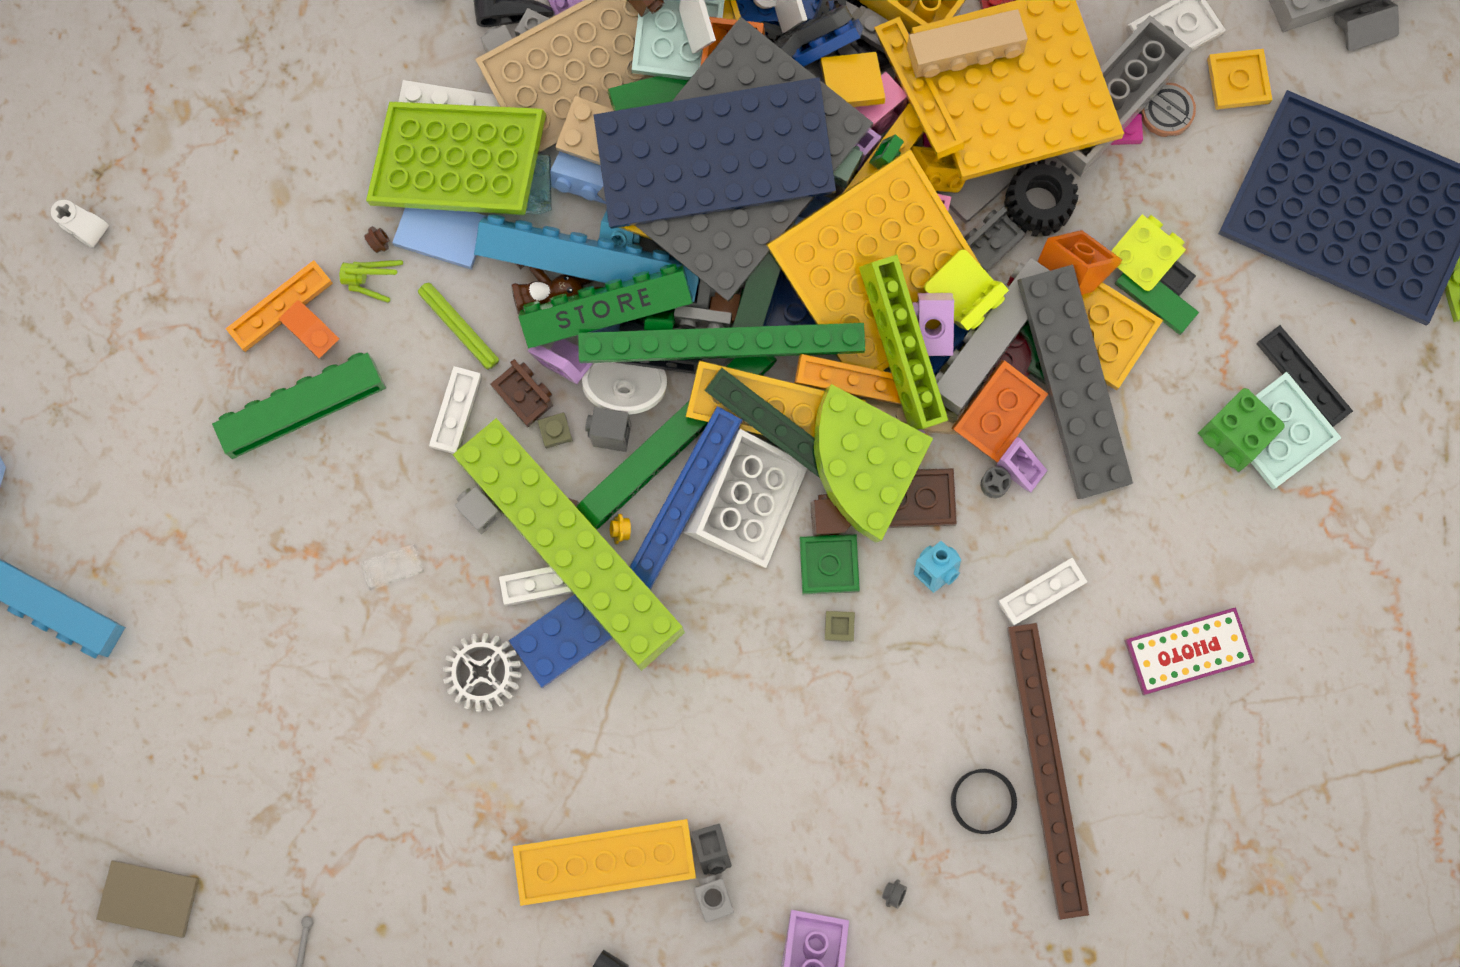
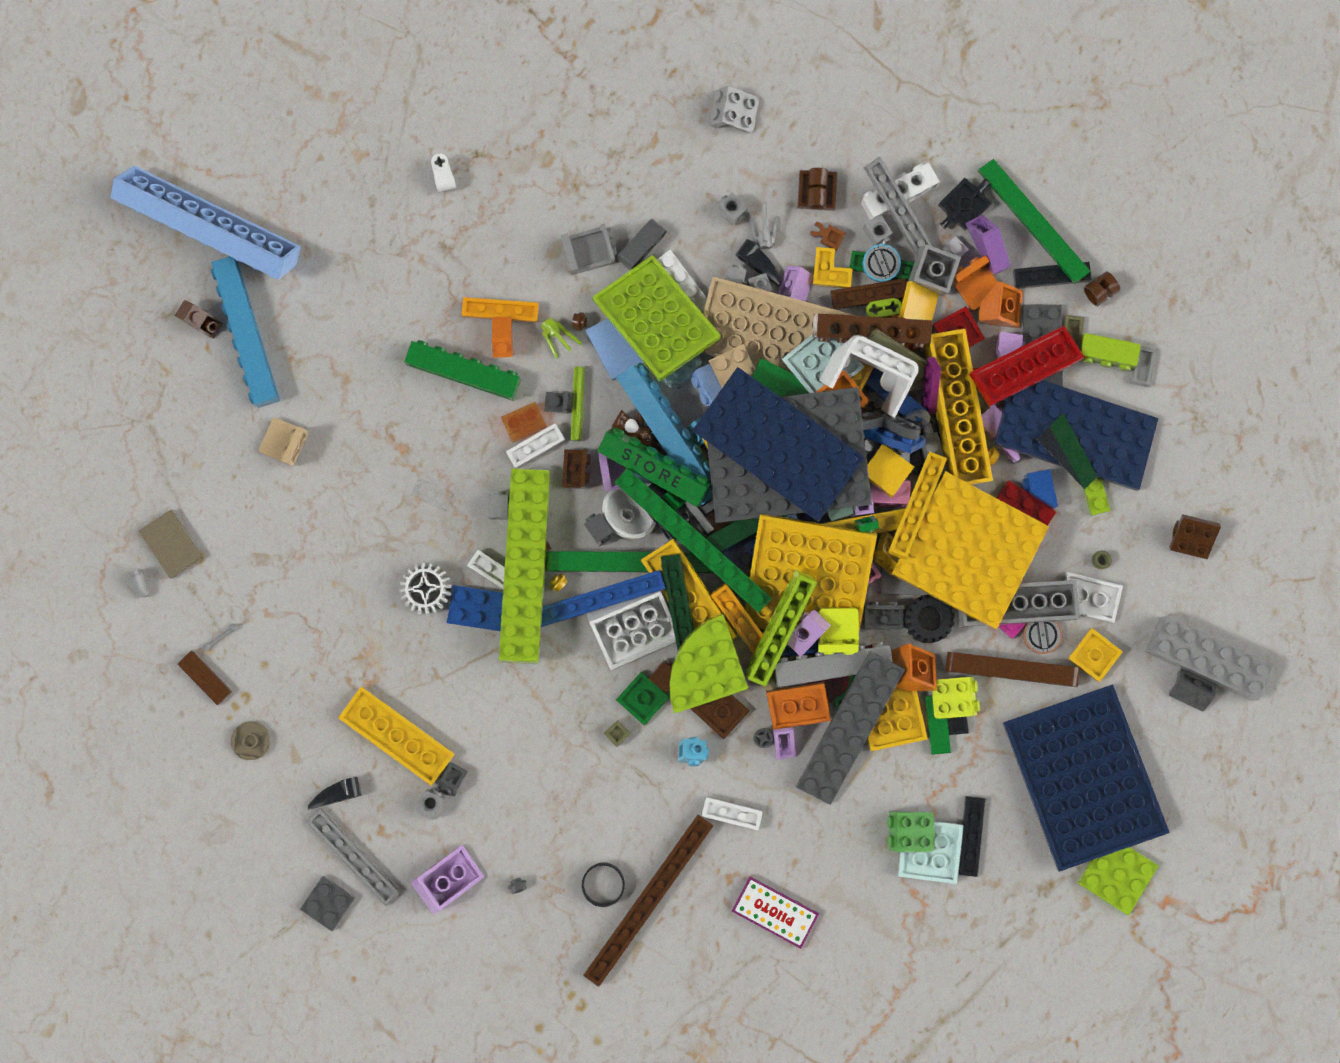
camera: 45 degrees right, 5 degrees up
(171, 665) = (283, 441): none -> tan bracket
(316, 158) = (589, 249): none -> light grey panel
(367, 102) = (641, 244): none -> dark grey beam
(418, 397) = (523, 422): none -> clear orange plate
(435, 343) = (557, 402): none -> dark grey bracket
(555, 430) = (574, 502): olive plate -> none
(967, 43) = (962, 508): tan brick -> none
(1173, 170) = (1012, 669): none -> reddish brown beam

